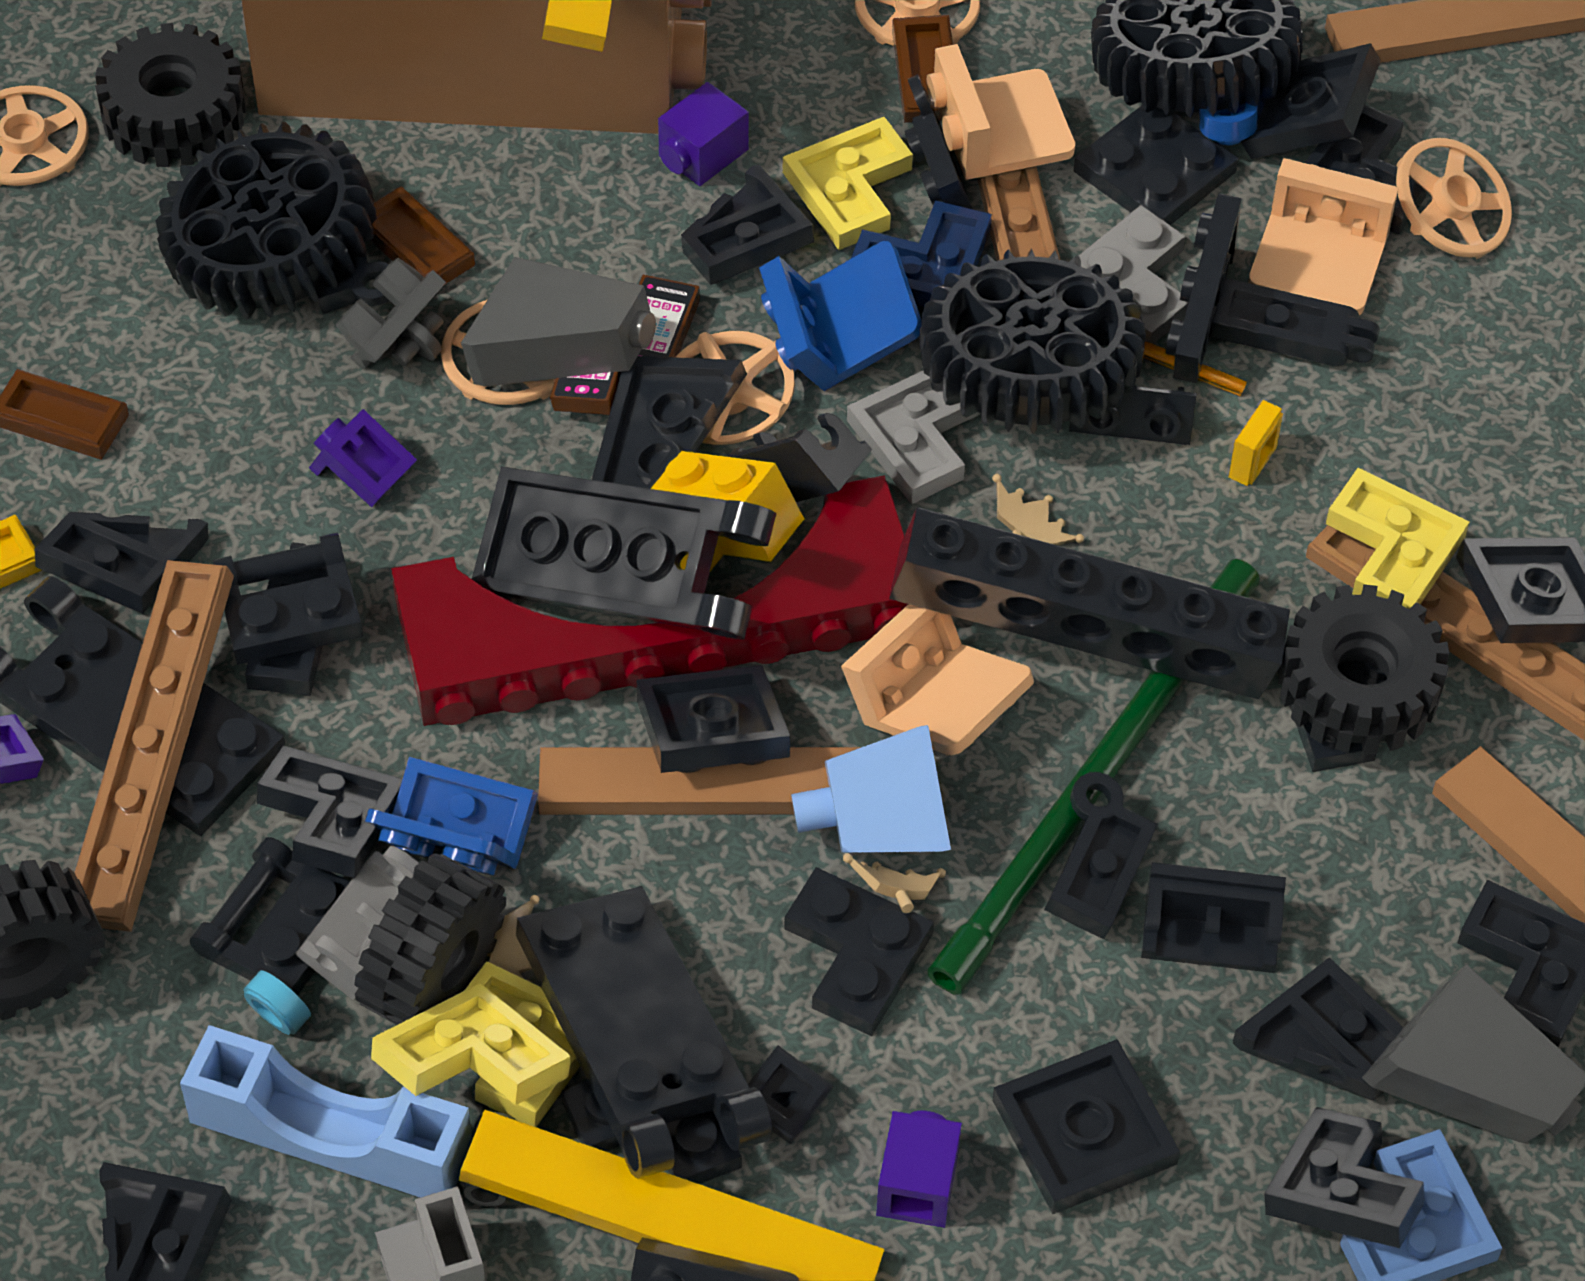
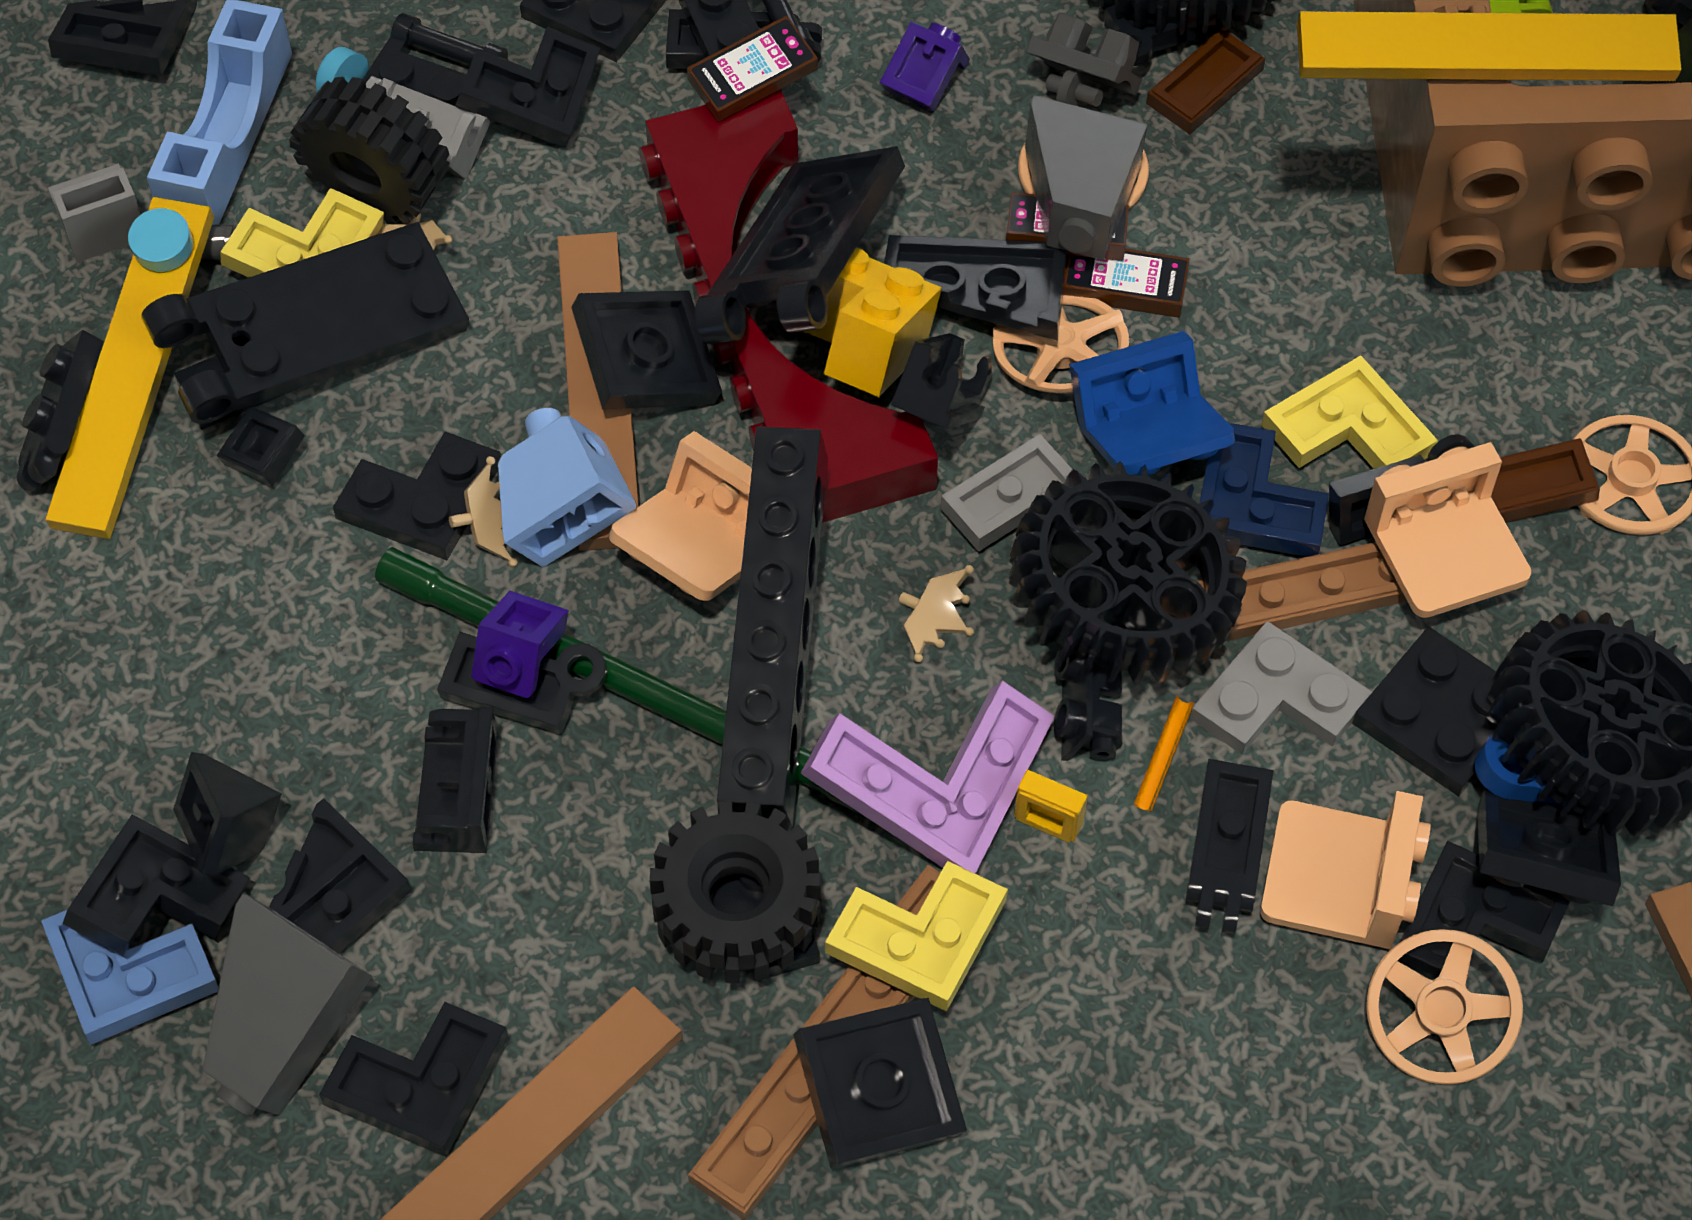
camera: 85 degrees right, 5 degrees up
(380, 578) = (752, 68): none -> tile
(465, 814) = (508, 173): blue bracket -> none
(472, 1033) = (279, 192): light yellow plate -> none
(531, 1155) = (160, 239): none -> medium azure tile
(703, 134) = (1379, 286): dark purple brick -> none
(746, 229) = (1265, 337): black wing -> none
(918, 1168) = (180, 548): dark purple brick -> none
(1076, 832) = (515, 641): none -> dark purple bracket
(1085, 1126) = (228, 681): black plate -> none
(1203, 286) = (1290, 742): black wing -> none
(1258, 1118) = (223, 813): none -> black slope
(1261, 518) = (937, 818): none -> lavender plate

